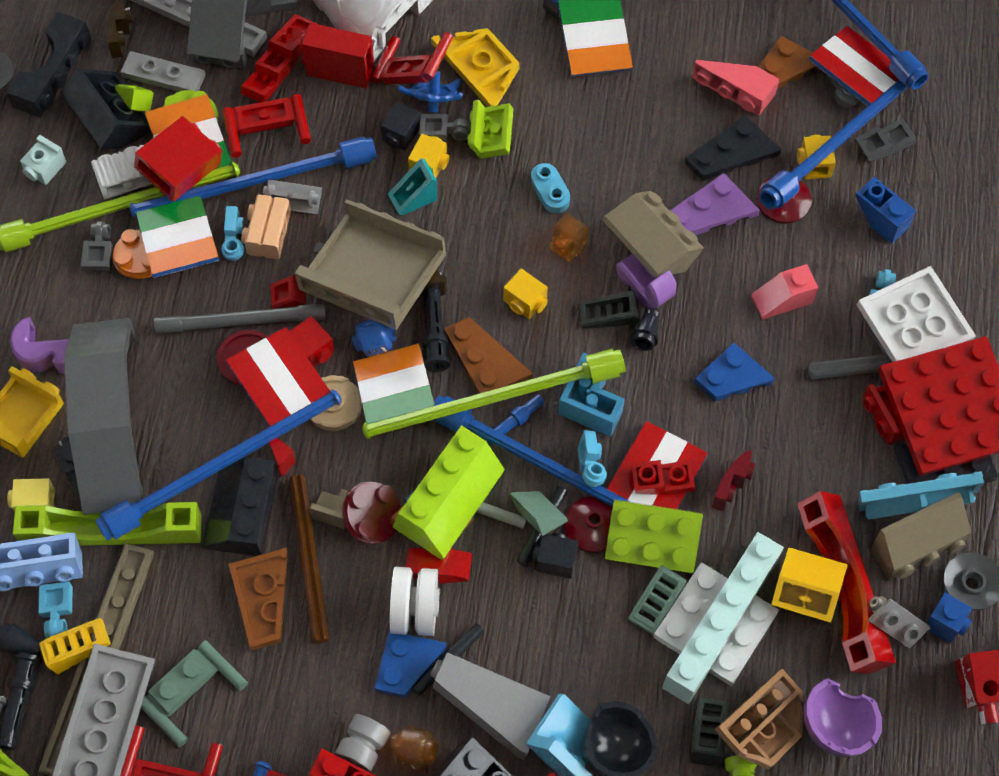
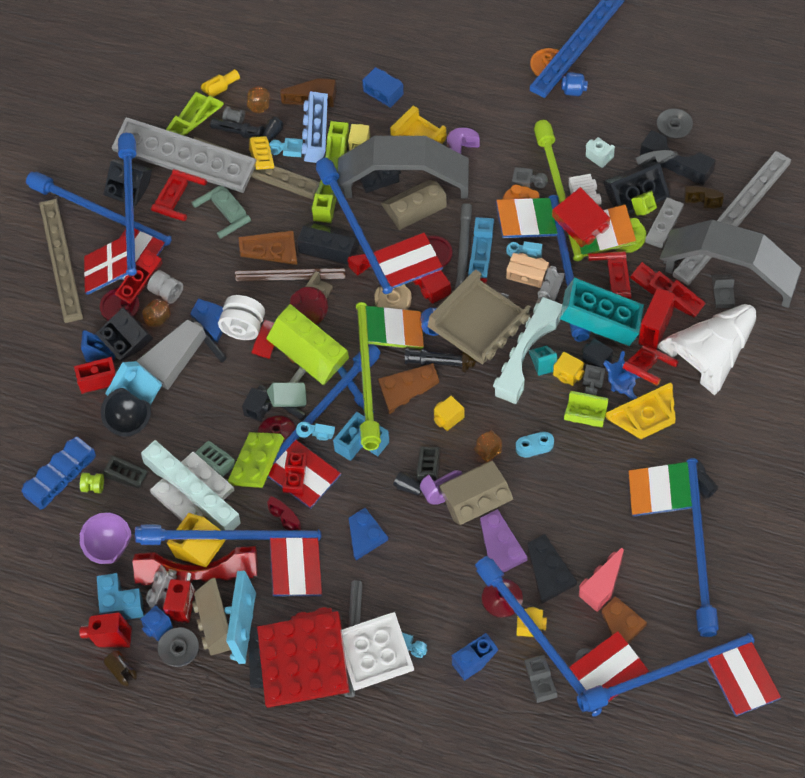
camera: 105 degrees right, 5 degrees down
(58, 70) = (661, 156): none -> dark grey slope
(158, 398) = (415, 203): none -> dark tan slope
(236, 295) = (481, 246): none -> dark azure slope
(341, 115) = (601, 312): none -> teal brick
(457, 222) = (545, 319): none -> light aqua arch
(766, 722) = (112, 490): medium nougat wedge -> none
(785, 292) = (419, 578): coral slope -> none
(798, 456) = (292, 553): none -> flag
(911, 586) = (179, 598): none -> red torso
(932, 686) = (114, 600): none -> dark azure brick

